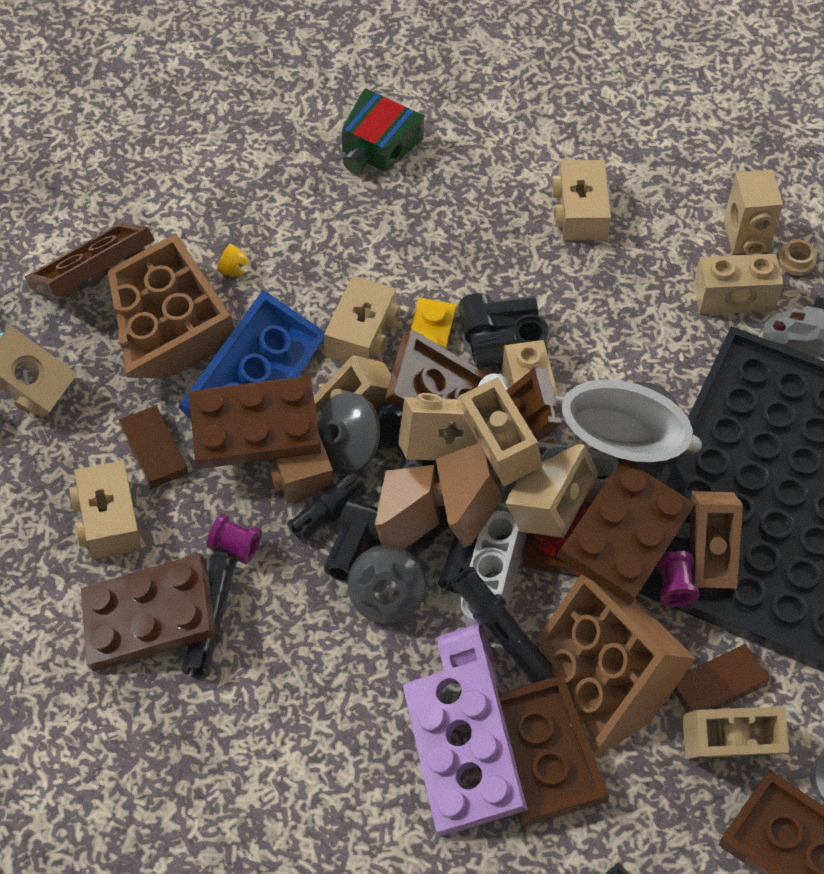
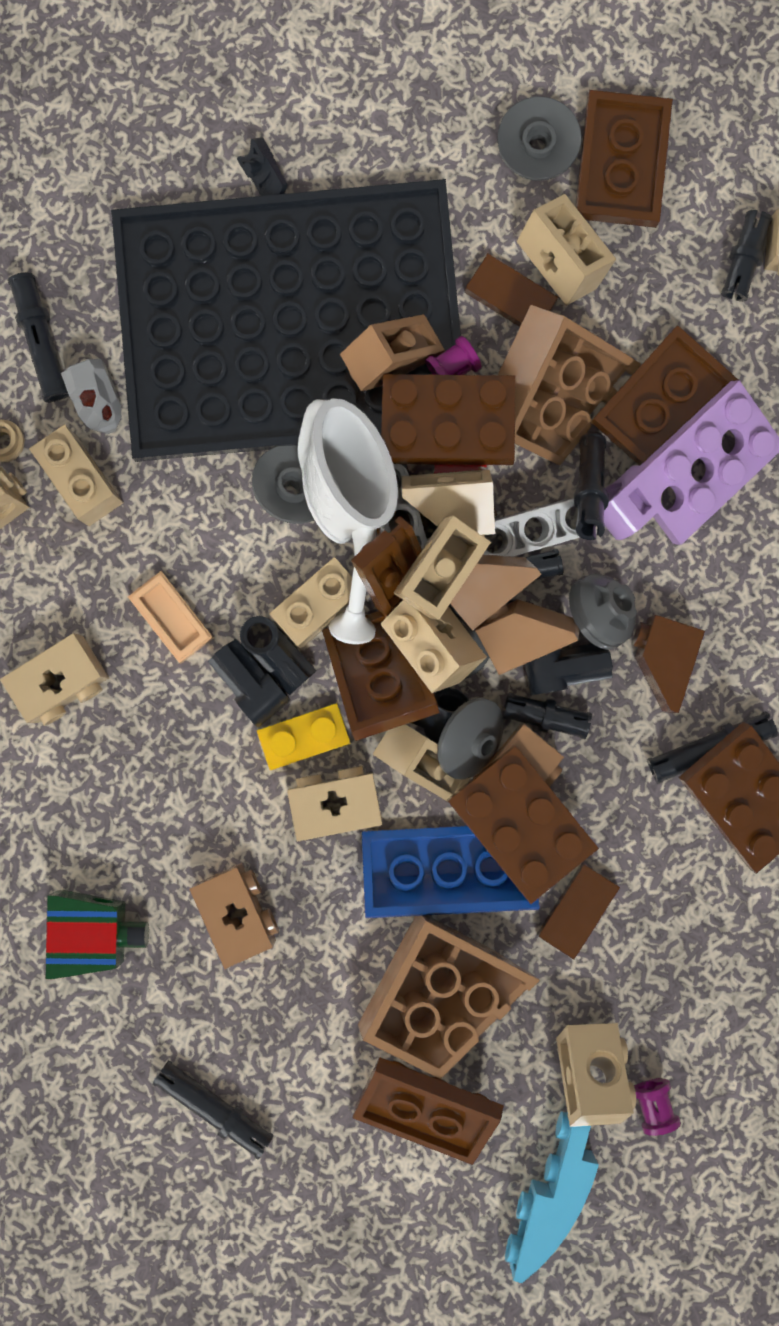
camera: 120 degrees left, 30 degrees up
(108, 531) = (653, 913): tan brick -> none
(191, 147) = (213, 1110): none -> black pin
(230, 260) = (334, 974): yellow hinge -> none
(234, 538) = (631, 773): magenta bush -> none
(310, 617) = (667, 658): none -> reddish brown slope
(326, 220) = (231, 938): none -> medium nougat brick
(584, 297) = (170, 617): none -> light nougat tile

